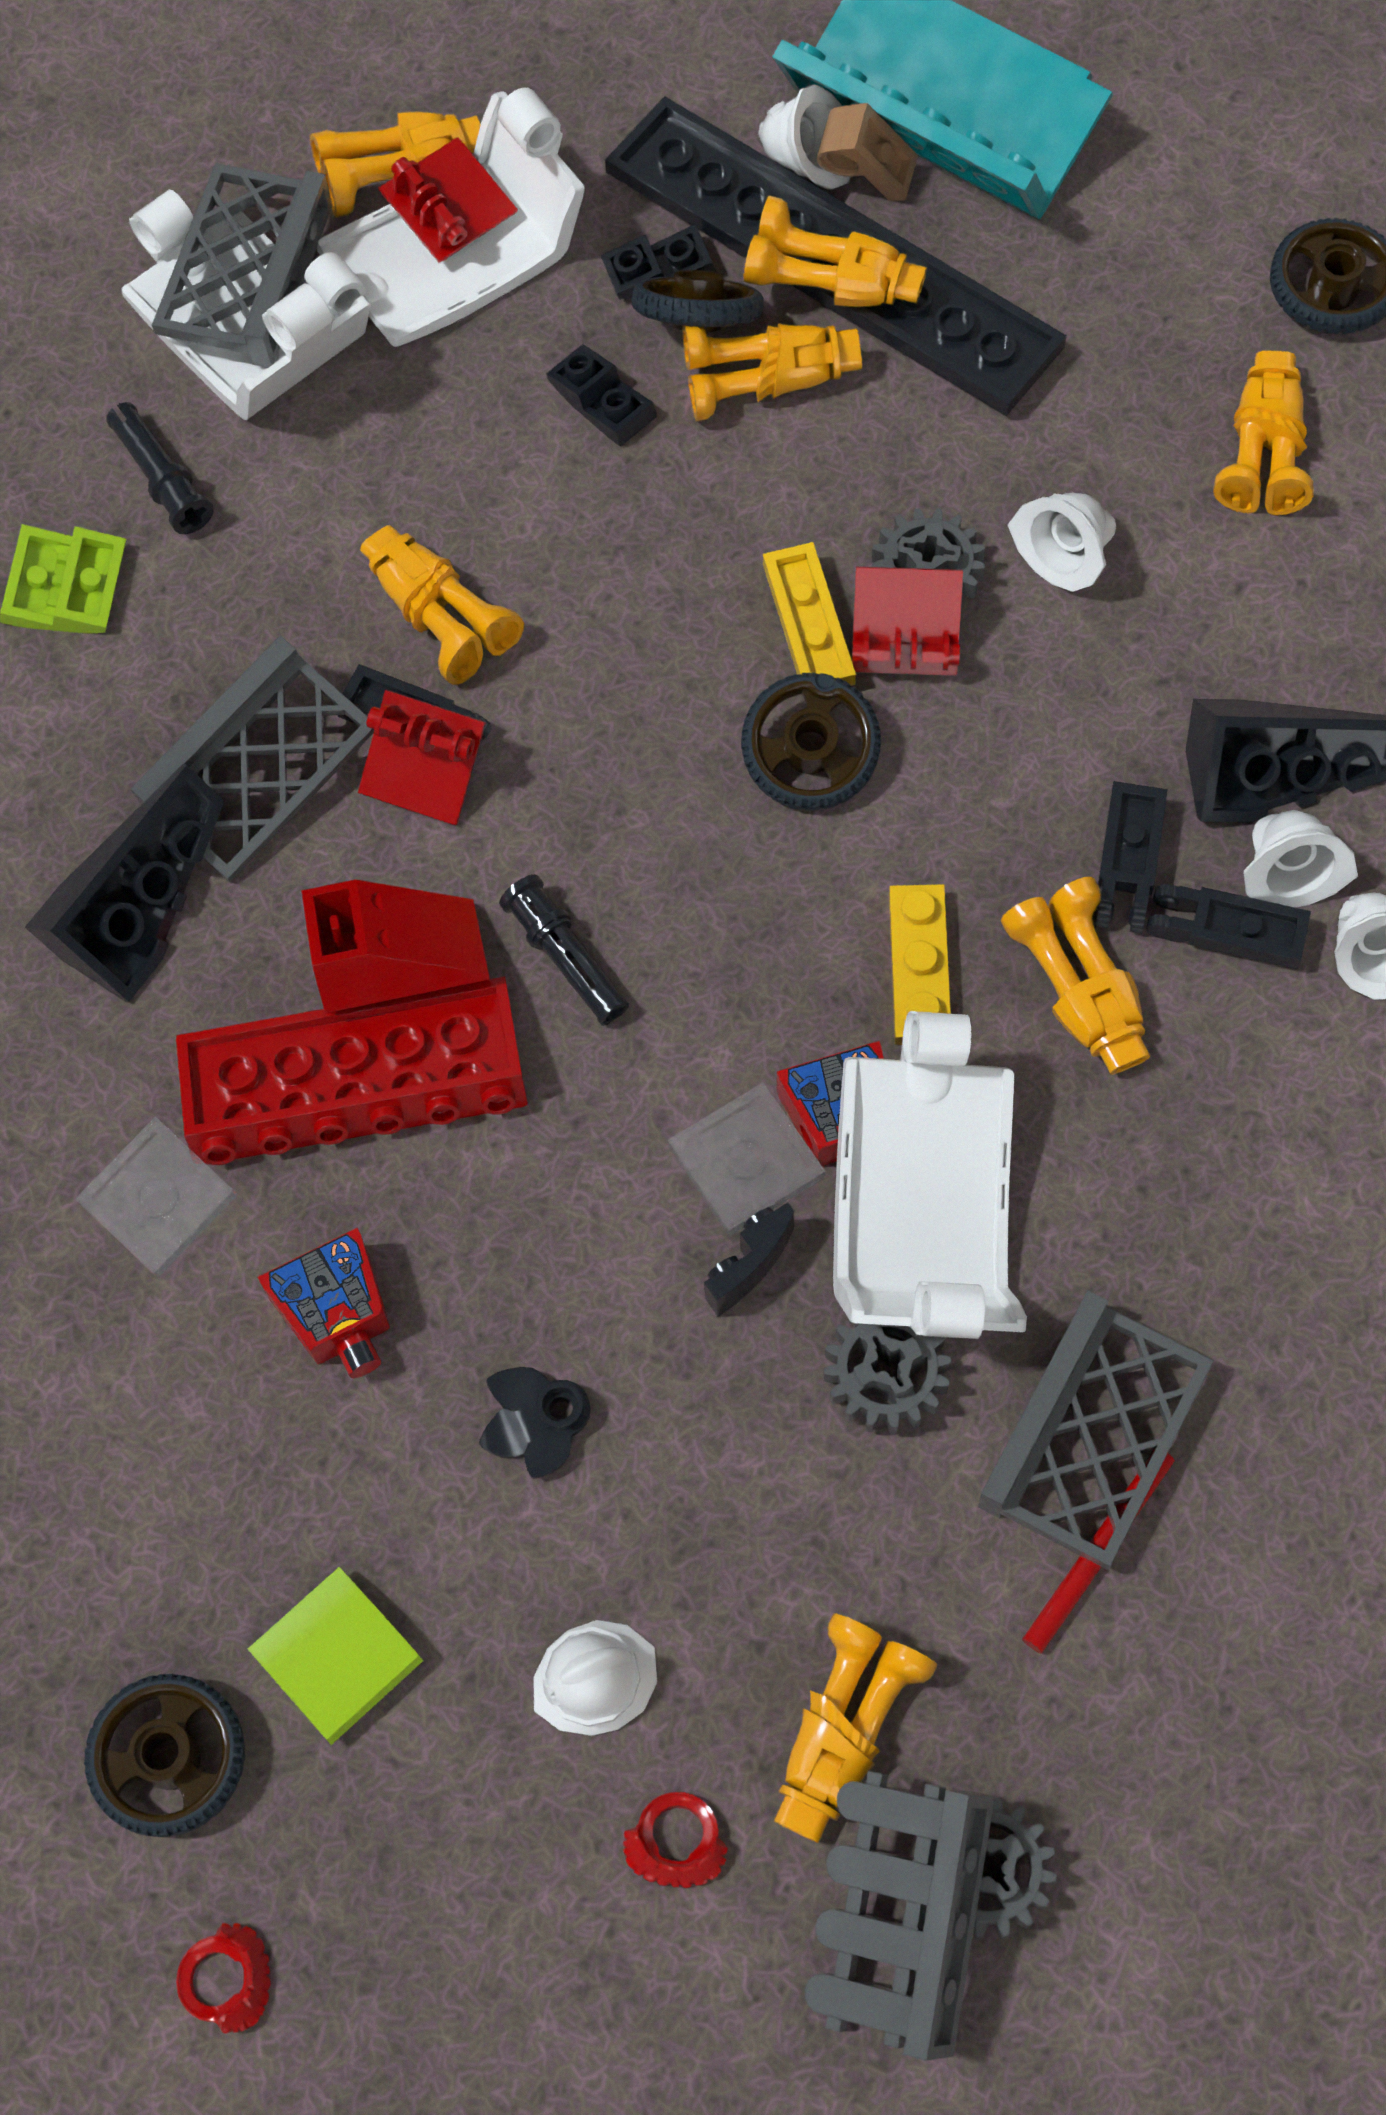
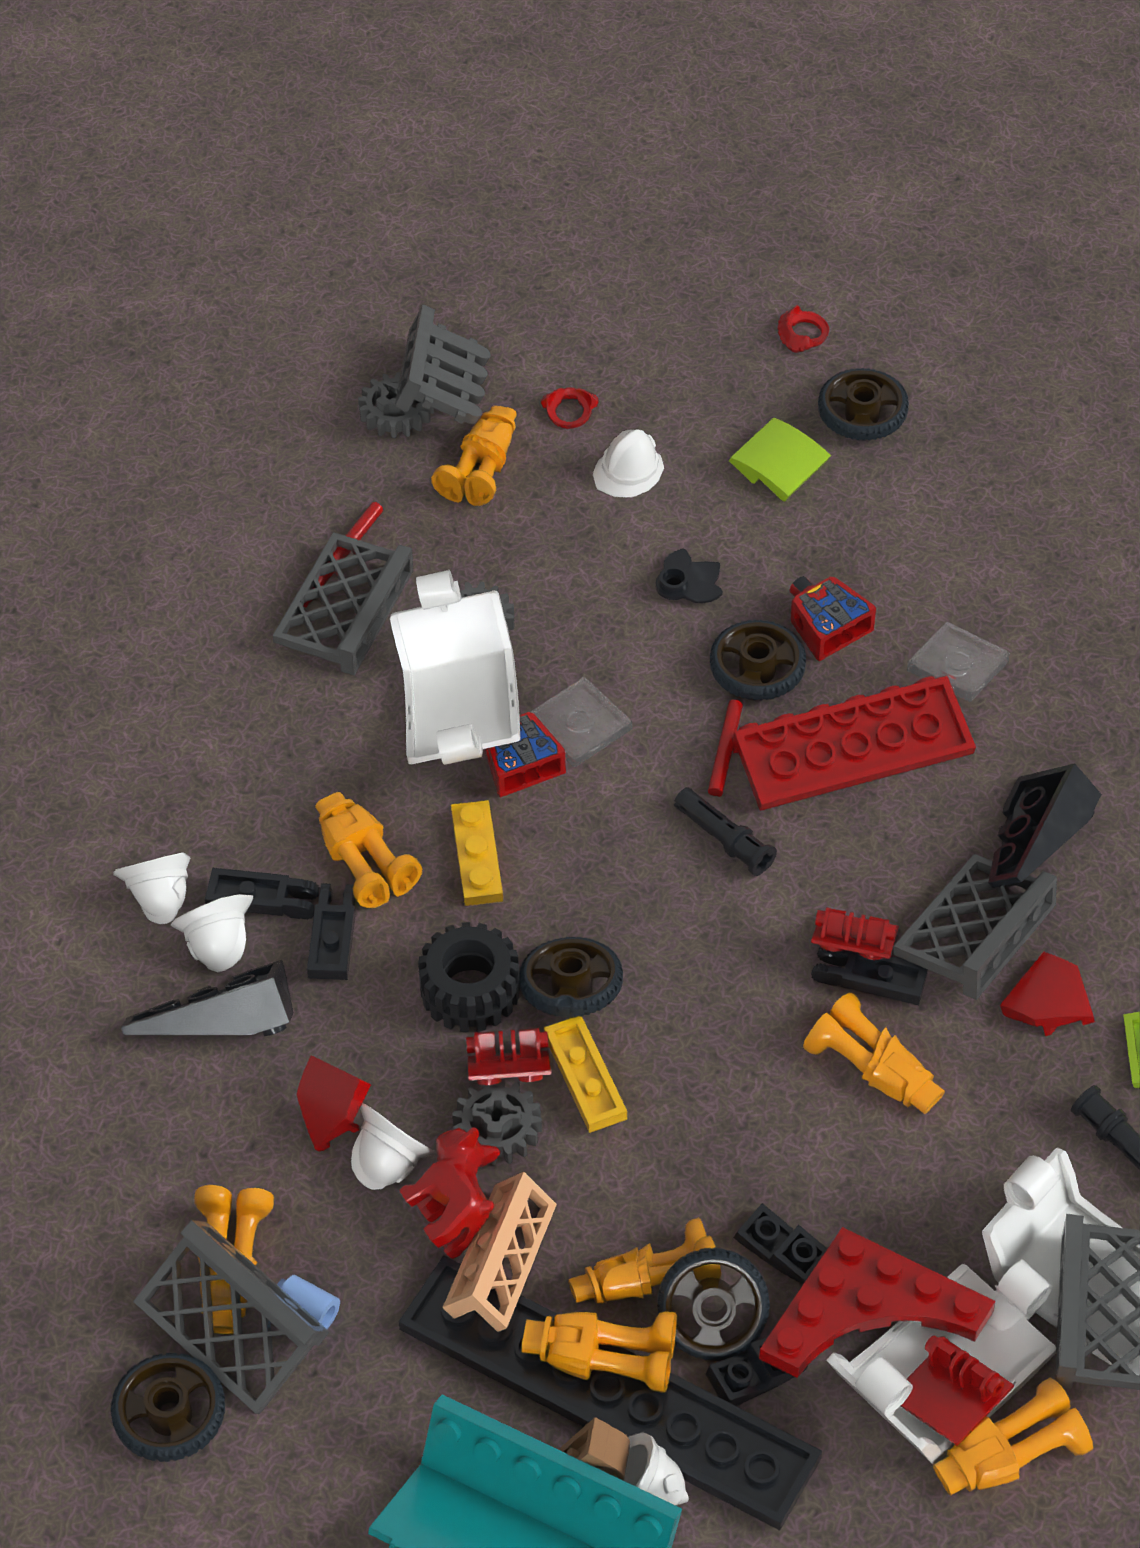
camera: 170 degrees right, 15 degrees down
(190, 661) = (1049, 995): none -> red slope
(389, 942) = (842, 804): red slope -> none
(487, 1271) = (758, 659): none -> dark brown wheel
(523, 310) = (865, 1290): none -> red plate
(536, 1098) = (725, 748): none -> red bar
(761, 1244) = (573, 653): black slope -> none
(946, 388) = (497, 1240): none -> light nougat fence
(954, 711) = (469, 1002): none -> black tyre
(991, 455) = (453, 1191): none -> red animal
(1139, 591) = (329, 1101): none -> red slope
(1176, 370) = (313, 1299): none -> light blue brick
(1261, 347) = (260, 1293): none -> dark grey fence

